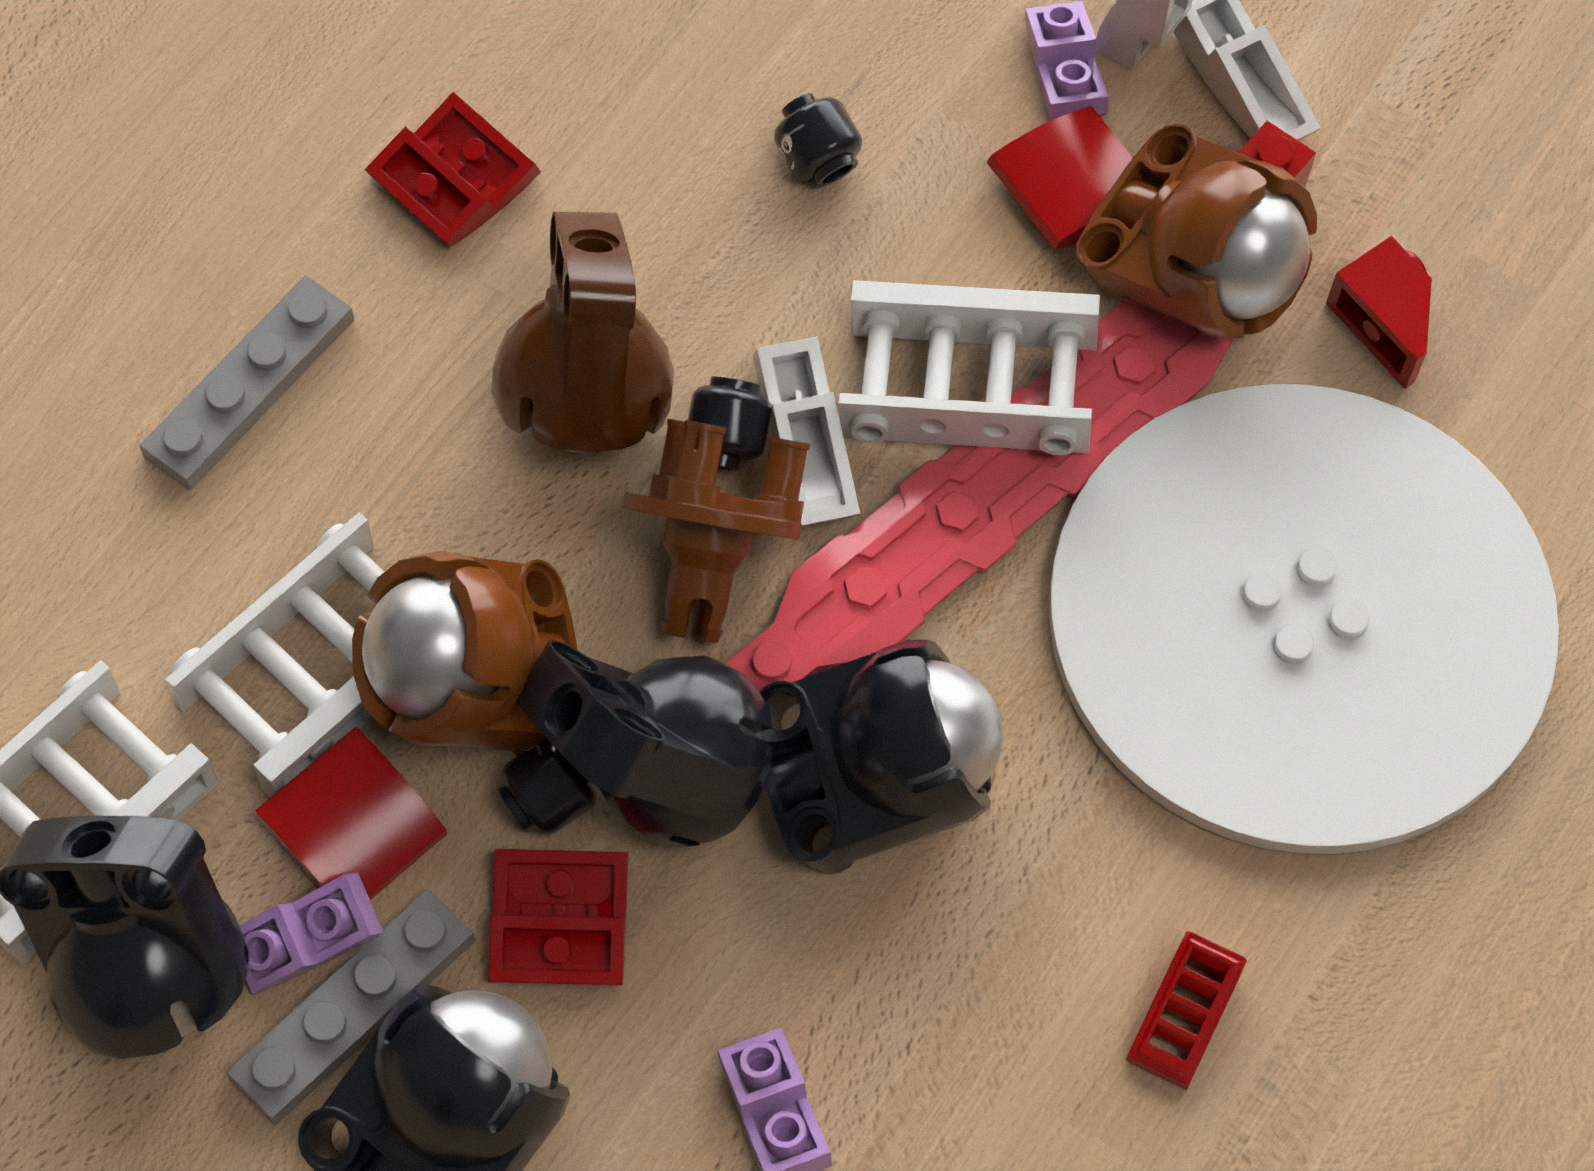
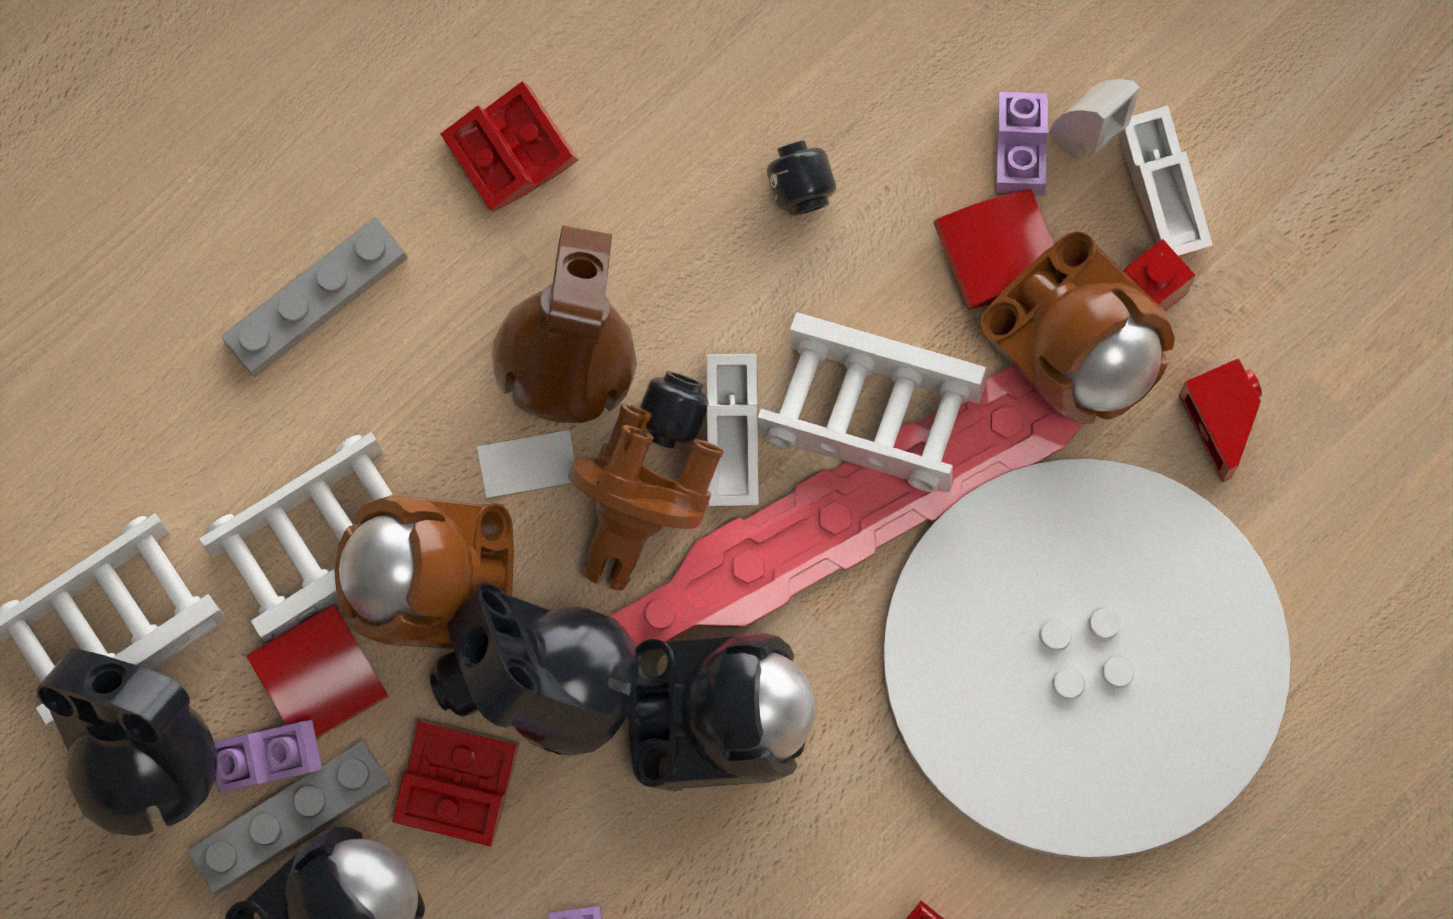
camera: 20 degrees right, 10 degrees up
(560, 524) = (526, 463): none -> white sticker

